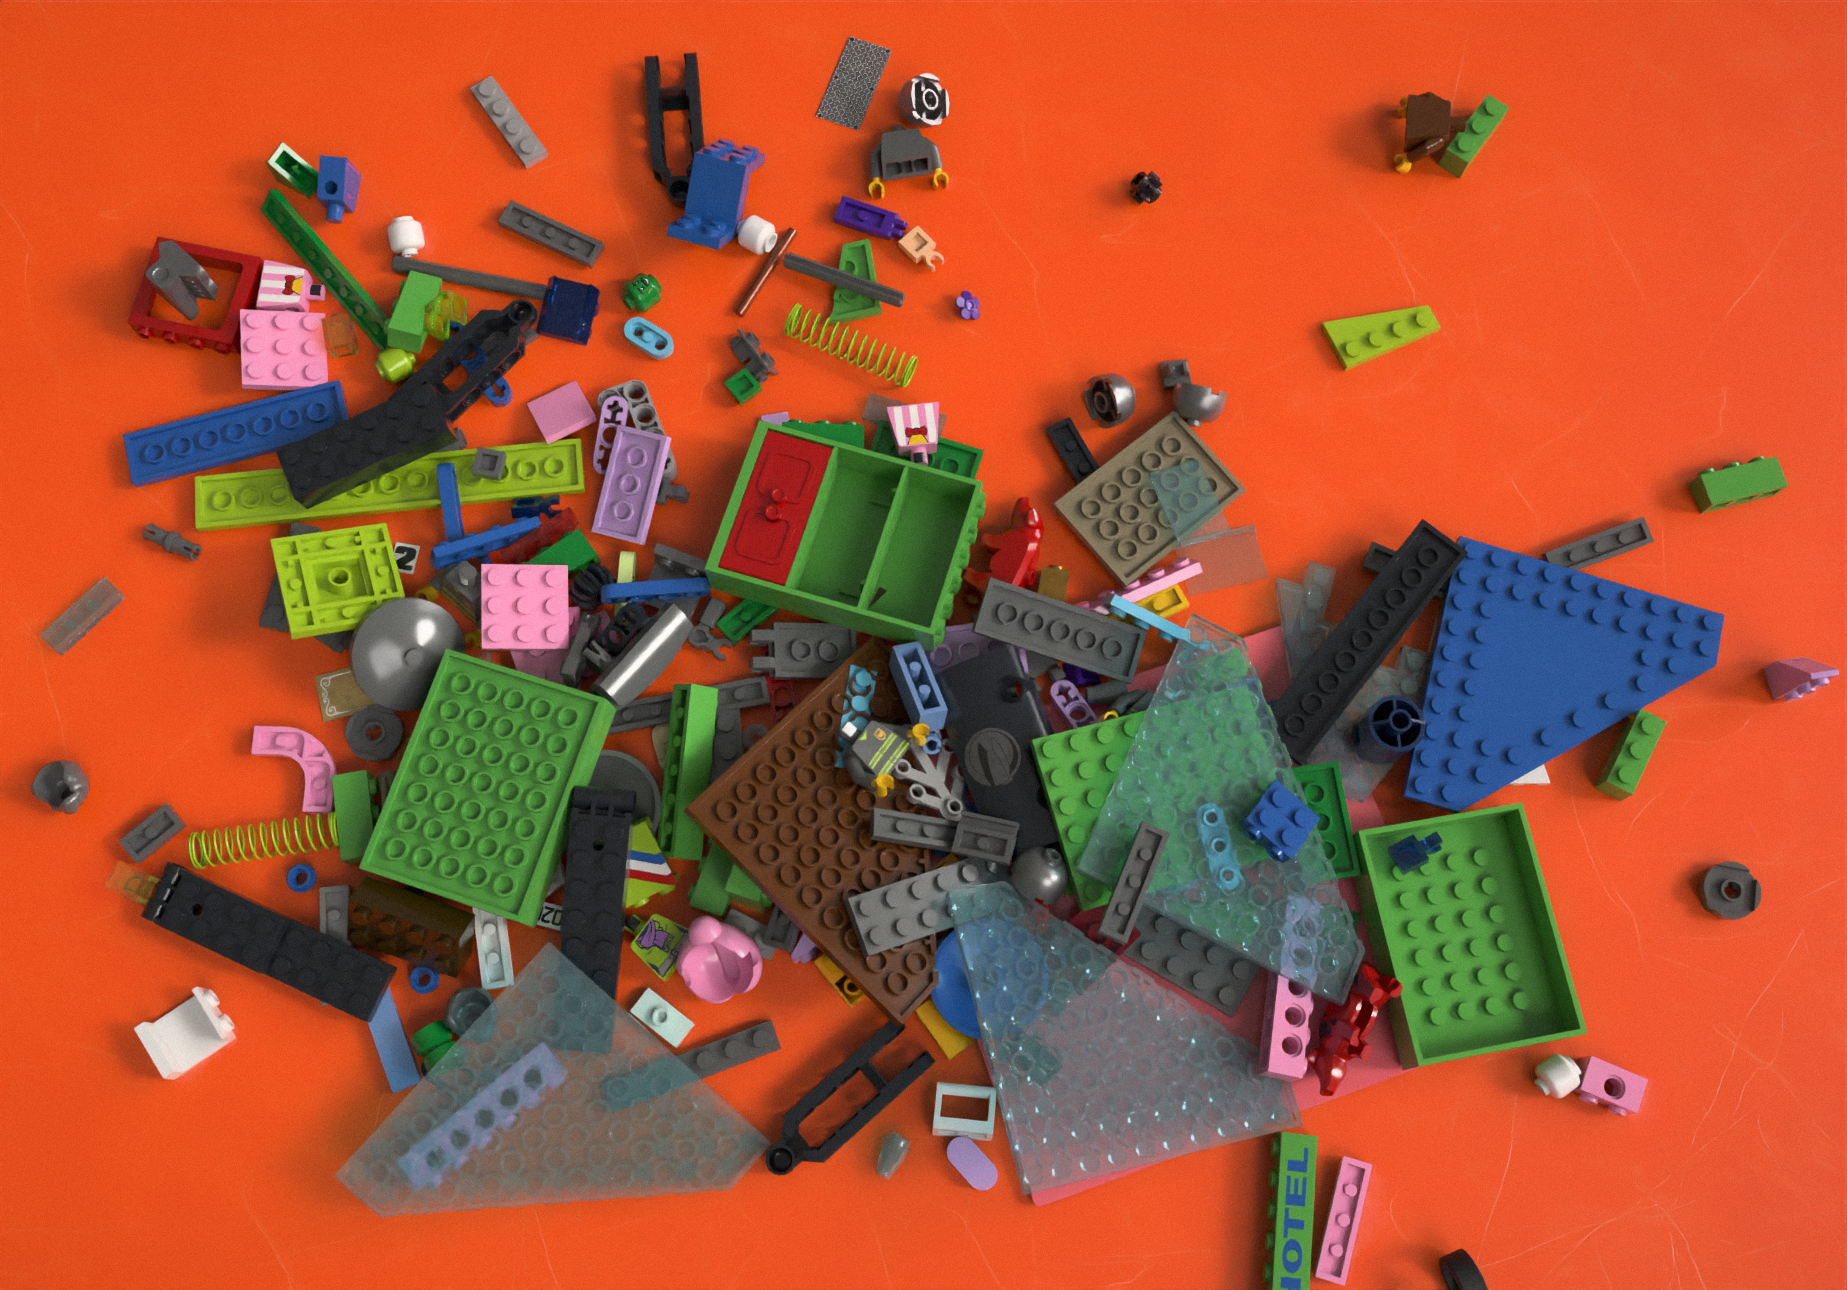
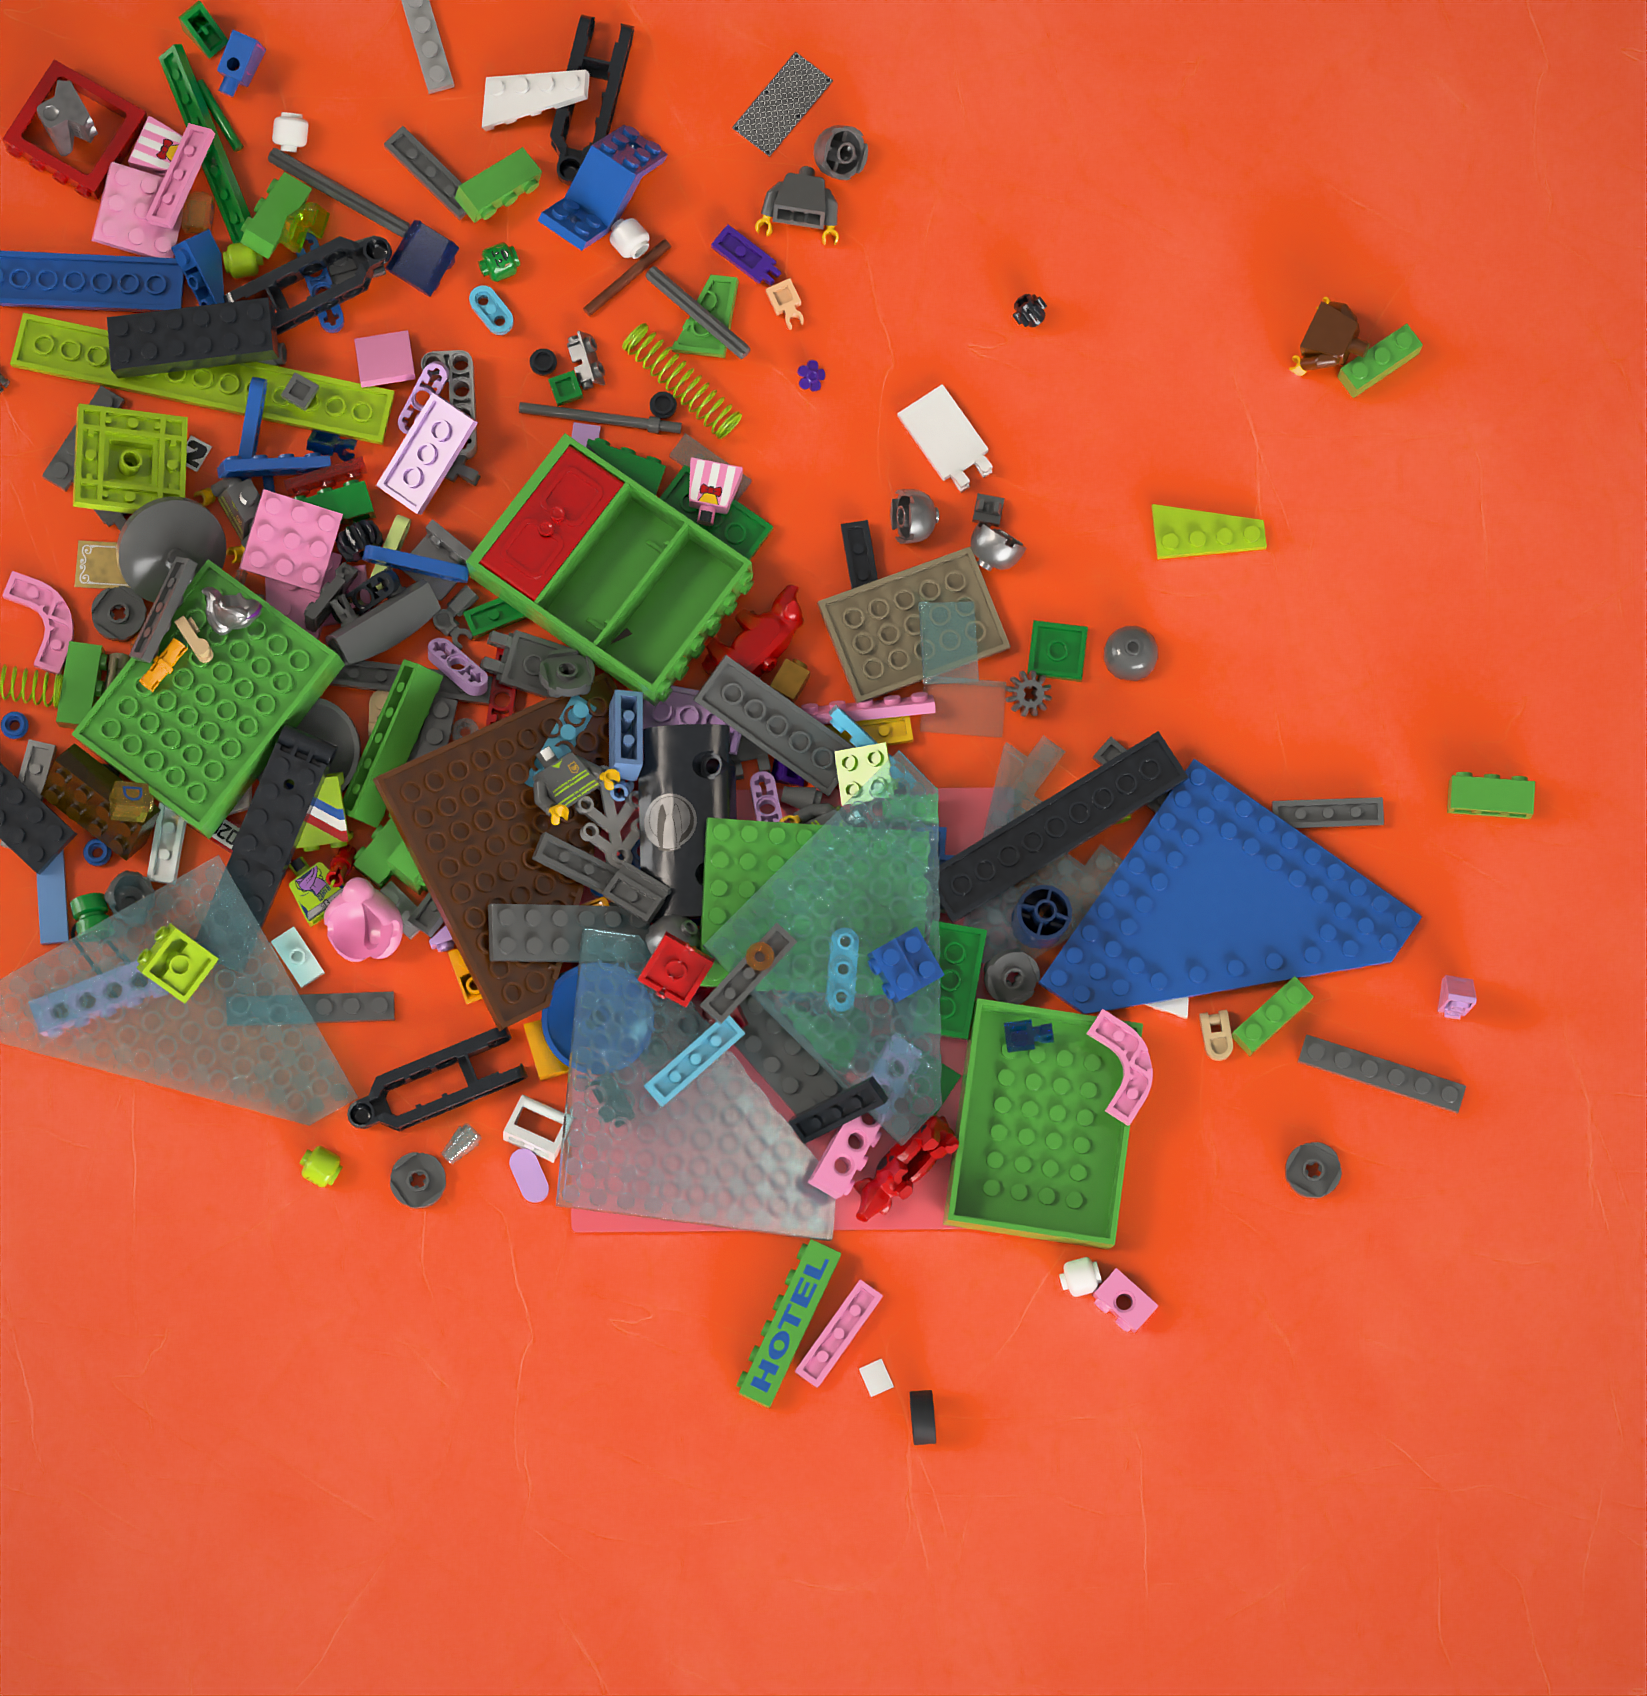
camera: 20 degrees right, 5 degrees up
(310, 303) = (180, 176): none -> bright pink plate
(336, 246) = (219, 117): none -> green bar
(356, 378) = (202, 267): none -> blue slope
(415, 710) = (163, 609): none -> dark grey plate
(431, 767) = (163, 664): none -> light orange pin
(439, 917) = (130, 801): none -> clear yellow brick
(463, 736) = (198, 645): none -> tan plate
(483, 692) = (229, 611): none -> flat silver hair
(538, 1069) = (176, 962): none -> lime plate
(618, 223) = (498, 185): none -> bright green brick
(621, 136) = (529, 94): none -> white wing
(677, 910) = (341, 865): none -> red pin
(713, 370) = (543, 362): none -> black plate
(745, 683) = (461, 677): none -> lavender beam
(756, 1229) = (320, 1166): none -> lime head
(833, 659) = (558, 684): none -> dark grey plate
(836, 394) = (653, 424): none -> dark grey bar
(840, 374) = (663, 405): none -> black plate
(864, 1226) = (433, 1183): none -> dark grey plate
(1055, 903) = (676, 969): none -> red plate
(1104, 992) = (693, 1060): none -> medium azure plate
(1112, 322) = (946, 437): none -> white tile
(1148, 856) = (768, 954): none -> clear orange plate
(1154, 646) = (857, 766): none -> hinge
(1268, 990) = (838, 1110): none -> black plate
(1288, 481) = (1057, 650): none -> green tile
(1288, 523) = (1037, 692): none -> dark grey gear
(1357, 461) = (1130, 653): none -> dark grey cylinder
(1361, 797) = (998, 969): none -> dark grey plate
(1394, 1251) = (876, 1377): none -> white sticker
(1540, 852) = (1135, 1061): none -> bright pink plate
(1589, 800) = (1216, 1044): none -> tan plate
(1750, 775) = (1381, 1074): none -> dark grey plate

